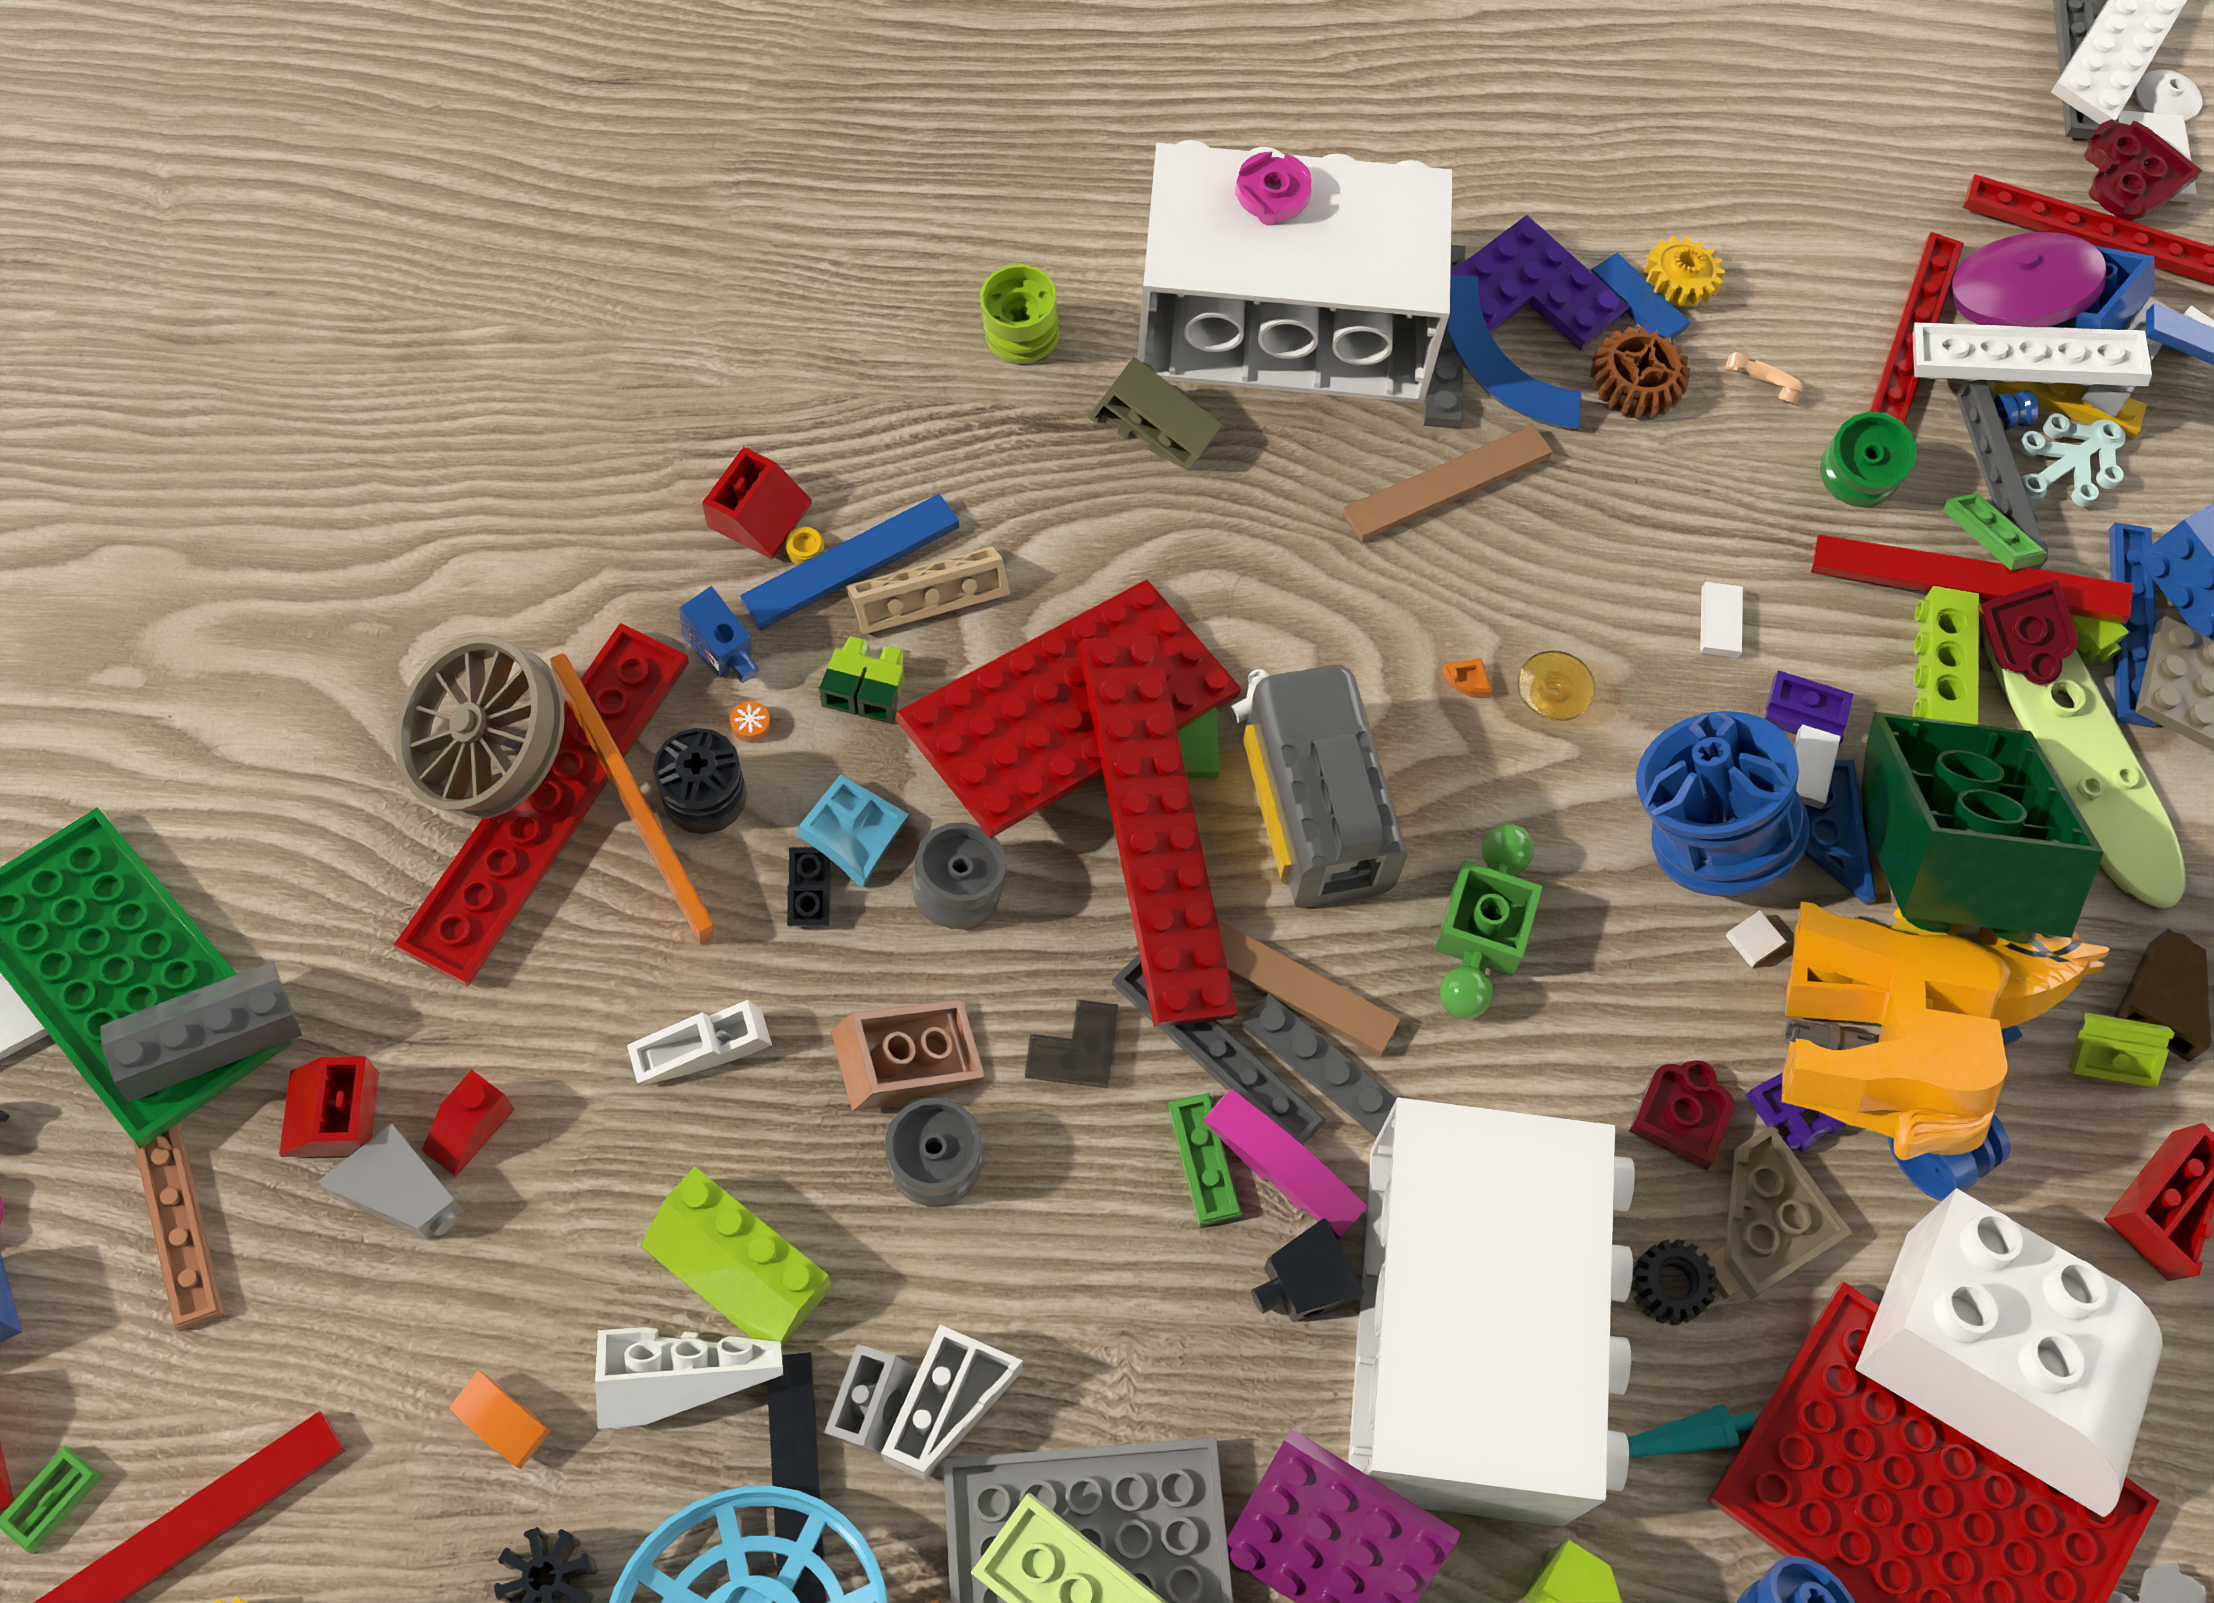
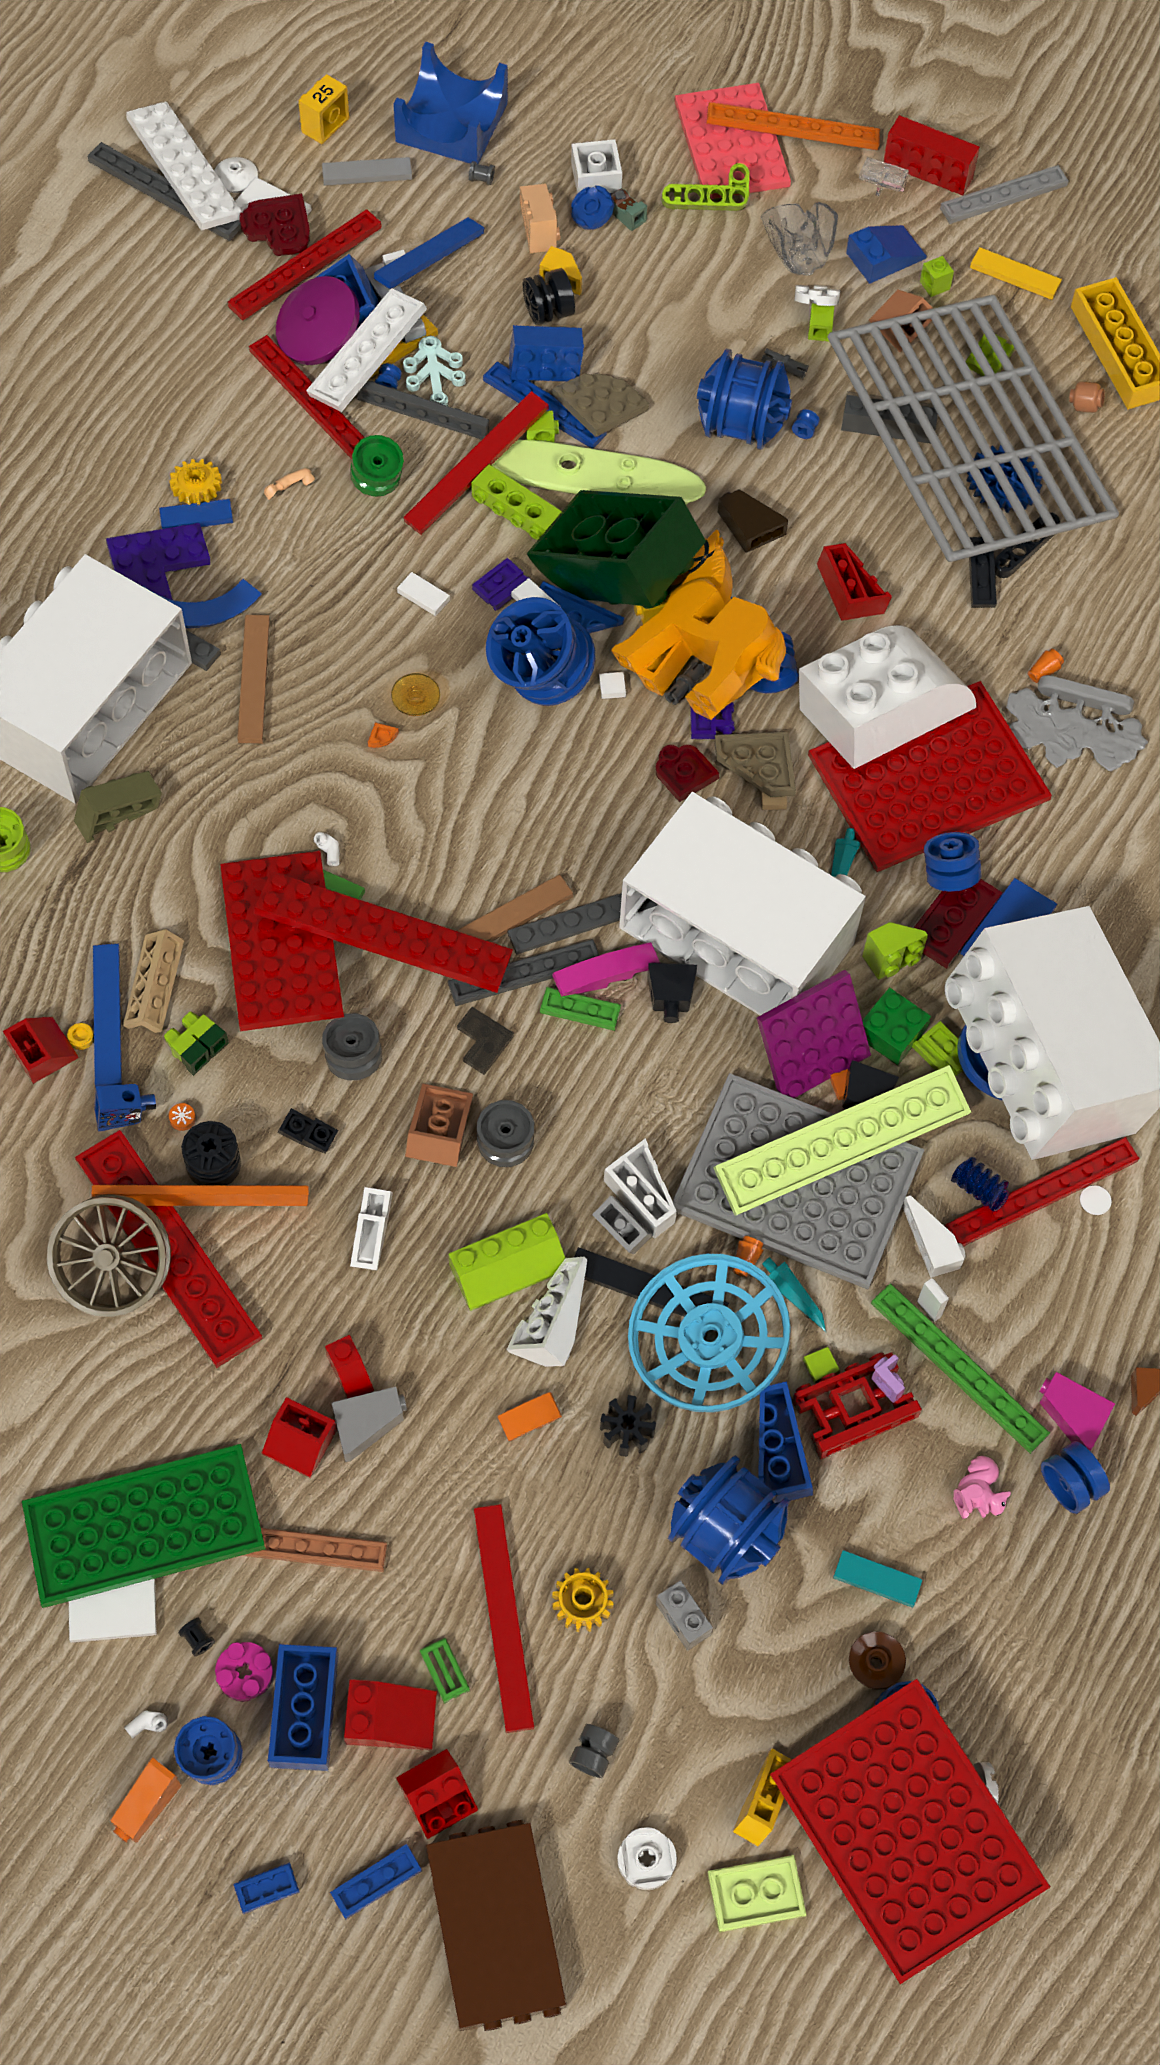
camera: 60 degrees left, 0 degrees up
(198, 1032) = (212, 1483): dark grey slope -> none
(852, 828) = (286, 1090): medium azure plate -> none
(1272, 204) = (45, 661): dark pink plate -> none
(1322, 787) = (410, 837): dark grey piece -> none
(1485, 942) = (531, 801): bright green brick -> none
(1660, 383) = (249, 535): dark orange gear -> none
(1695, 1269) = (773, 814): black tyre -> none
(1995, 531) = (456, 434): bright green tile -> none
(2031, 631) = (526, 454): dark red plate -> none
(2121, 1050) = (766, 559): lime plate -> none

